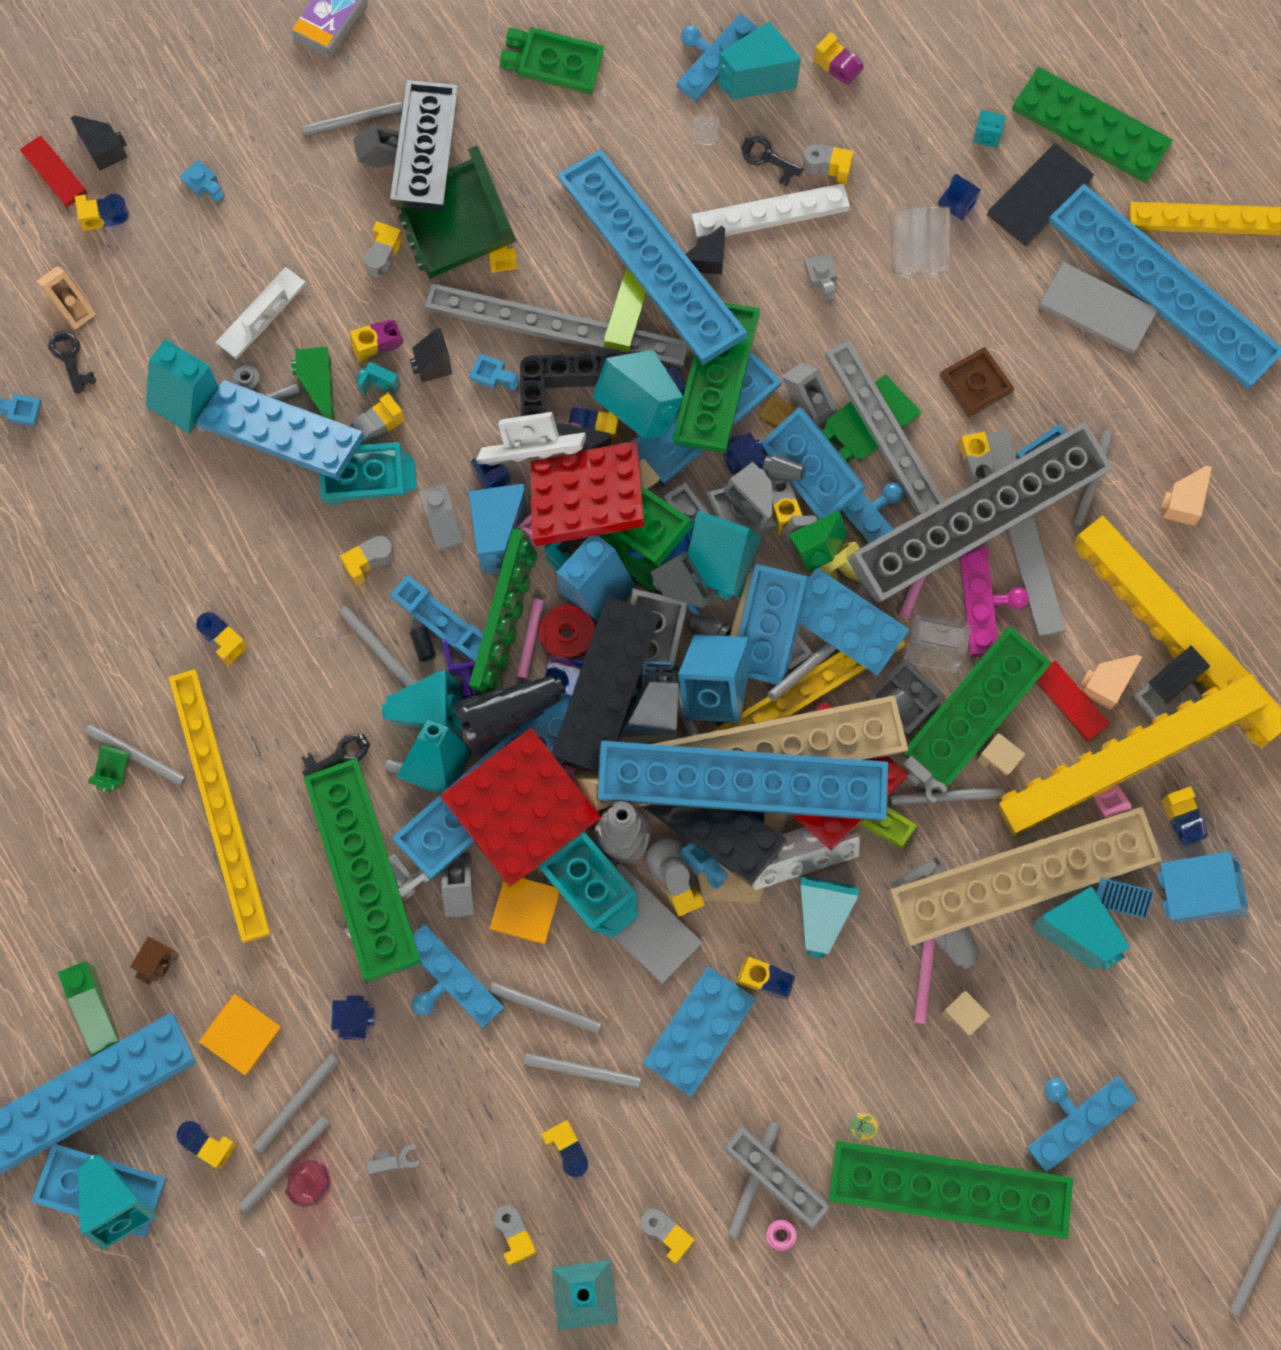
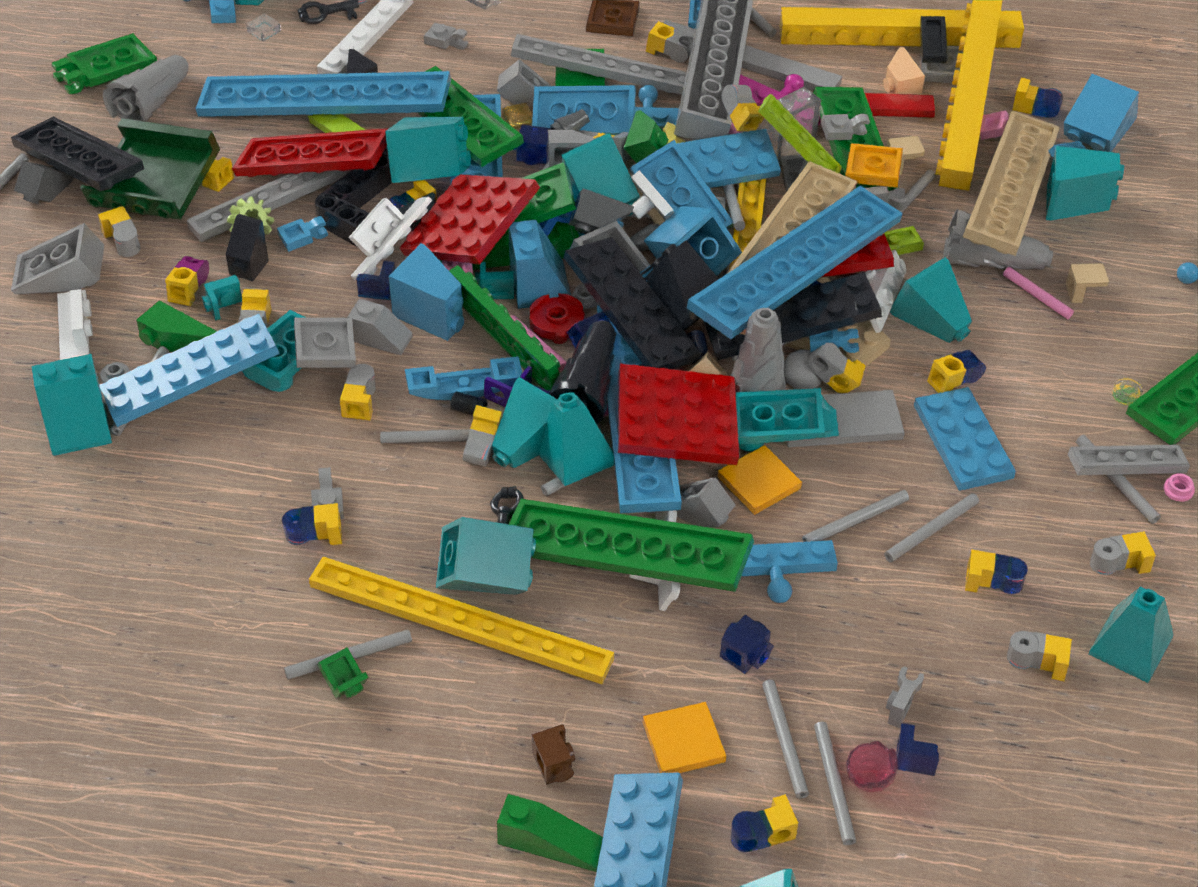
camera: 50 degrees left, 25 degrees down
(253, 625) = (327, 493): none -> light grey plate
(273, 782) = (485, 557): none -> teal slope
(313, 241) = (60, 263): none -> light grey slope
(351, 1204) = (915, 755): none -> clear blue panel
(378, 499) = (324, 343): none -> light grey plate
(391, 681) = (481, 435): none -> leg
(467, 319) = (251, 210): none -> yellowish green gear
(542, 121) = (144, 90): none -> light grey cone
(570, 310) = (311, 153): none -> red plate
(736, 607) = (650, 199): none -> white tile
(905, 595) = (741, 107): none -> leg
(905, 670) = (796, 134): none -> lime tile
(947, 747) = (874, 165): none -> light orange tile
(972, 683) = (842, 128): none -> light grey plate

